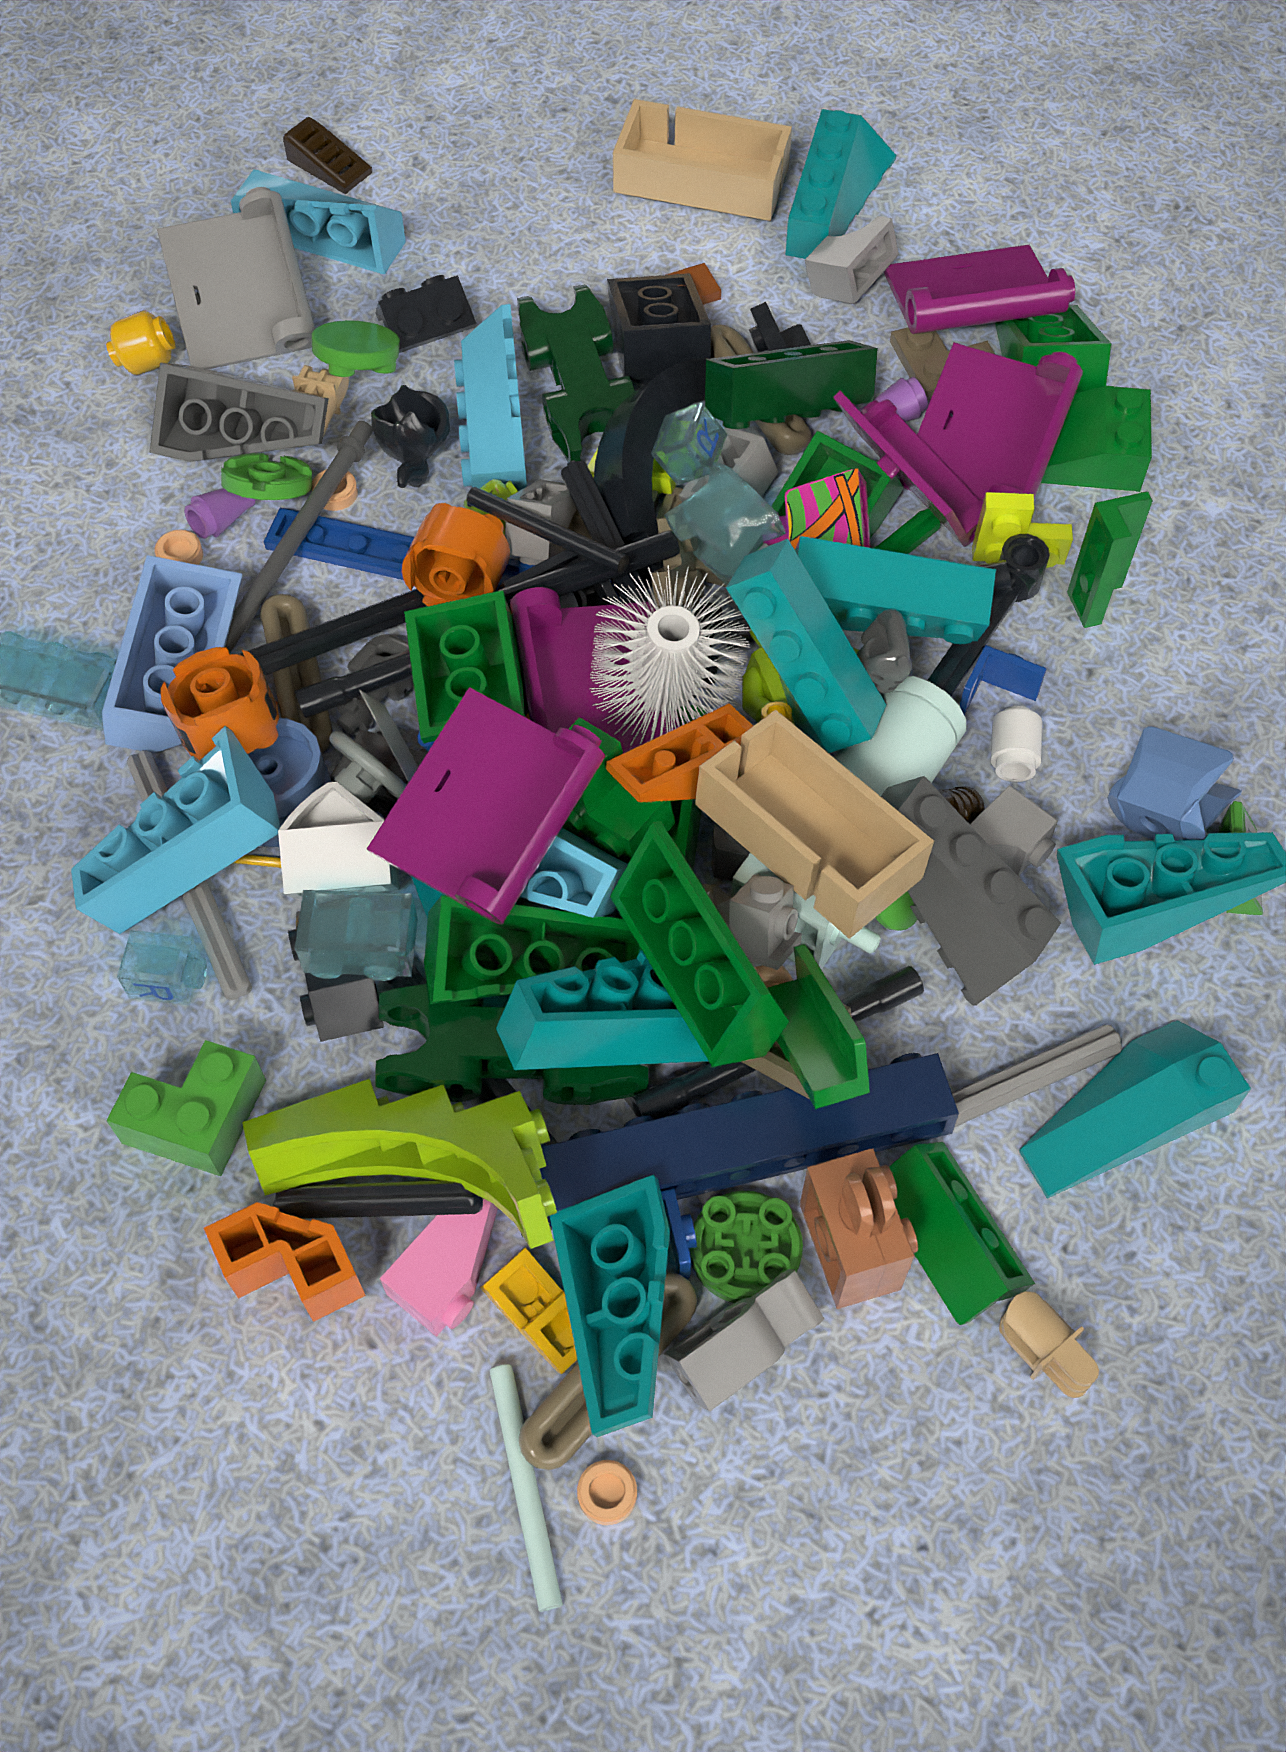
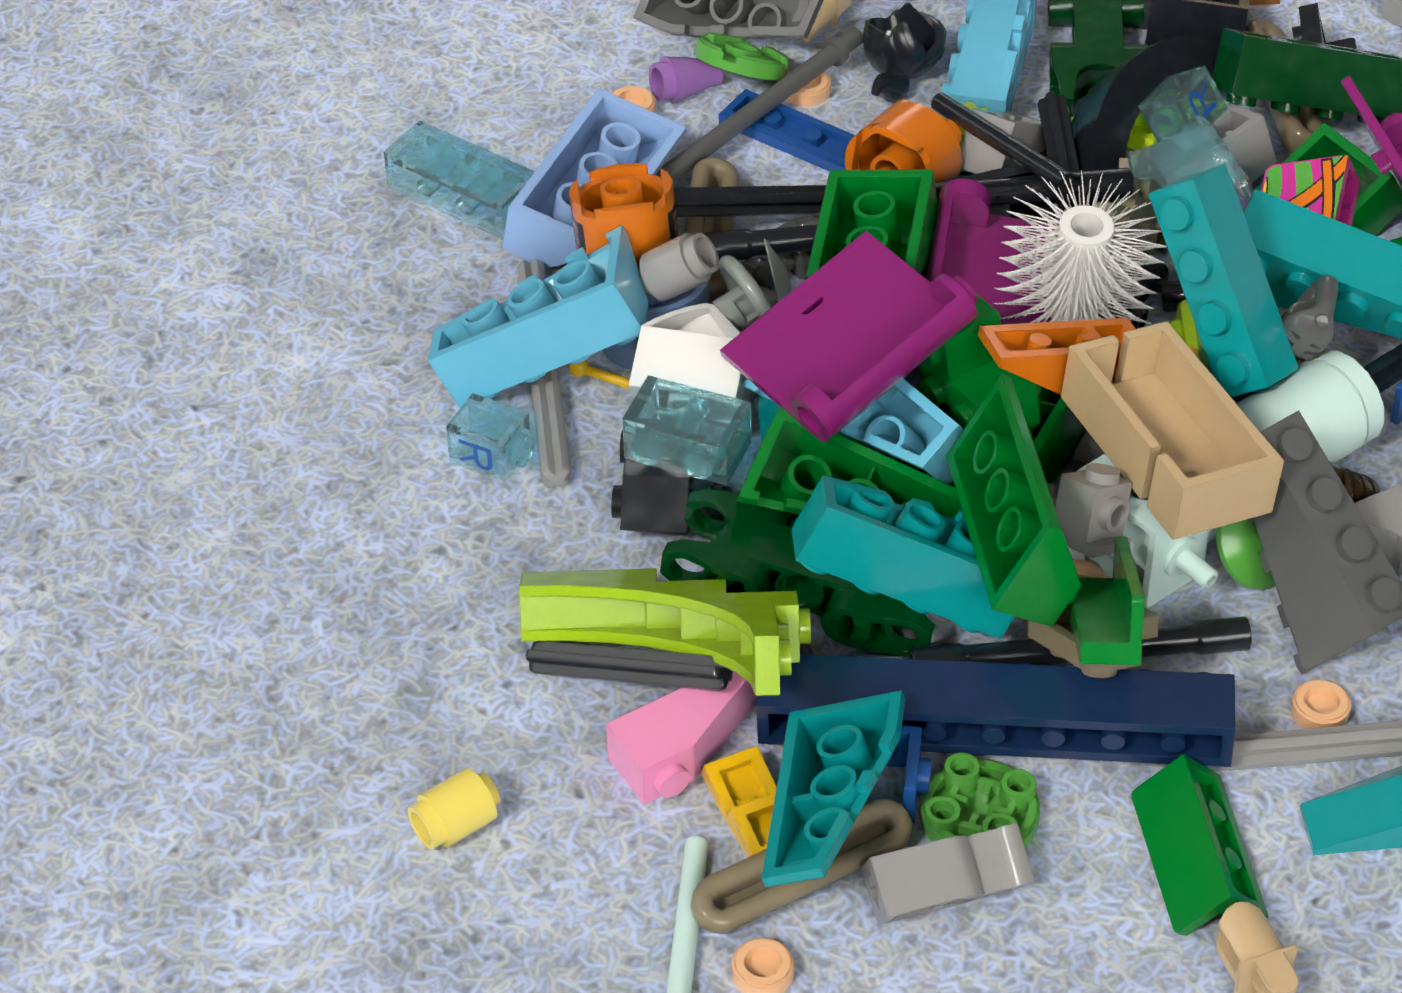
camera: 20 degrees right, 15 degrees down
(193, 1122) = (480, 563): bright green brick -> none
(260, 1412) = (454, 808): none -> light yellow brick
(267, 1244) = (512, 677): orange brick -> none
(291, 751) = (678, 265): none -> light grey brick
(857, 1227) = (1095, 804): nougat brick -> none
(1002, 1038) = (1320, 705): none -> light nougat tile

